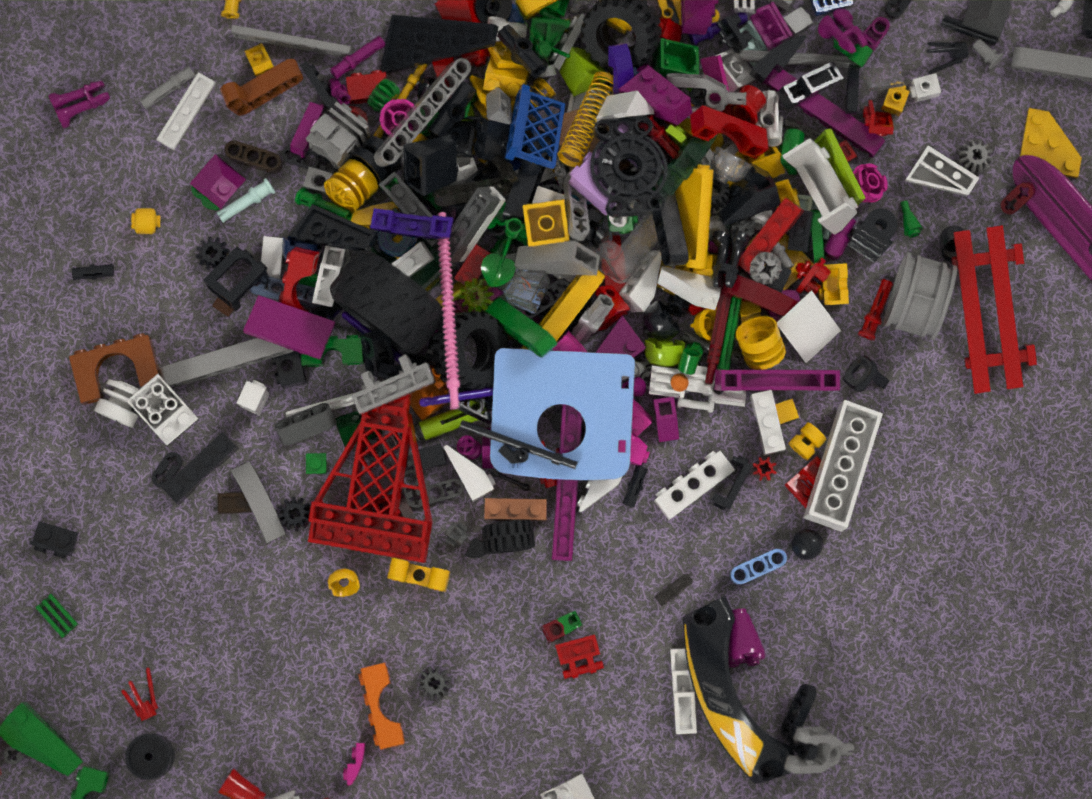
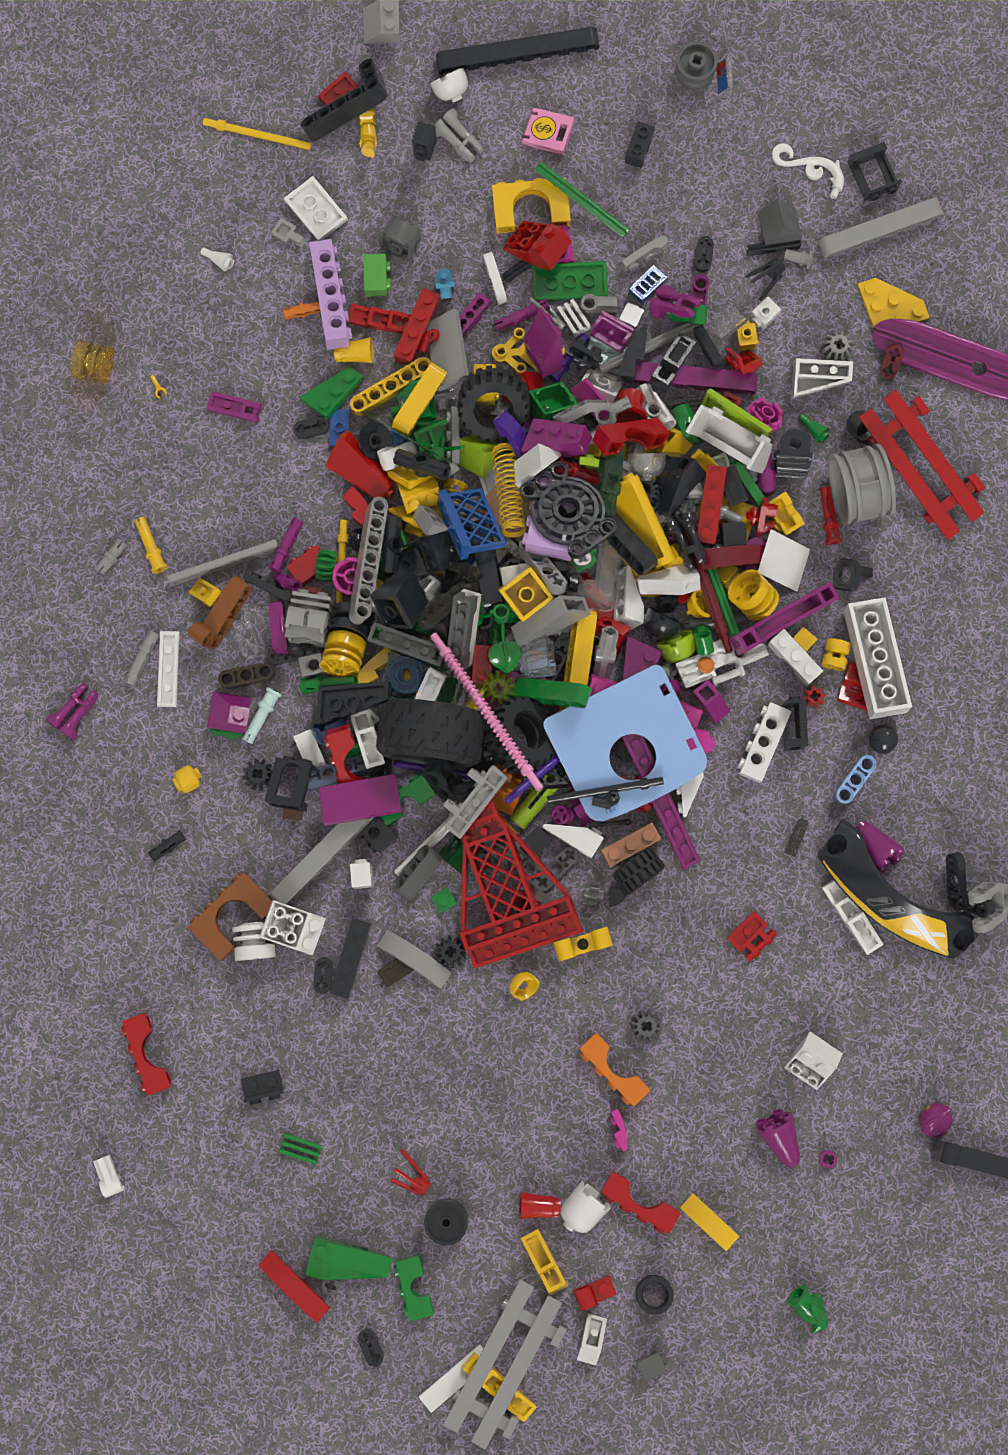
camera: 25 degrees left, 0 degrees up
(411, 225) = (414, 658): dark purple slope -> none
(425, 40) = (335, 500): black wing -> none
(561, 626) = (723, 920): leg -> none
(635, 486) = (716, 770): black pin -> none
(757, 266) = (716, 532): light grey gear -> none

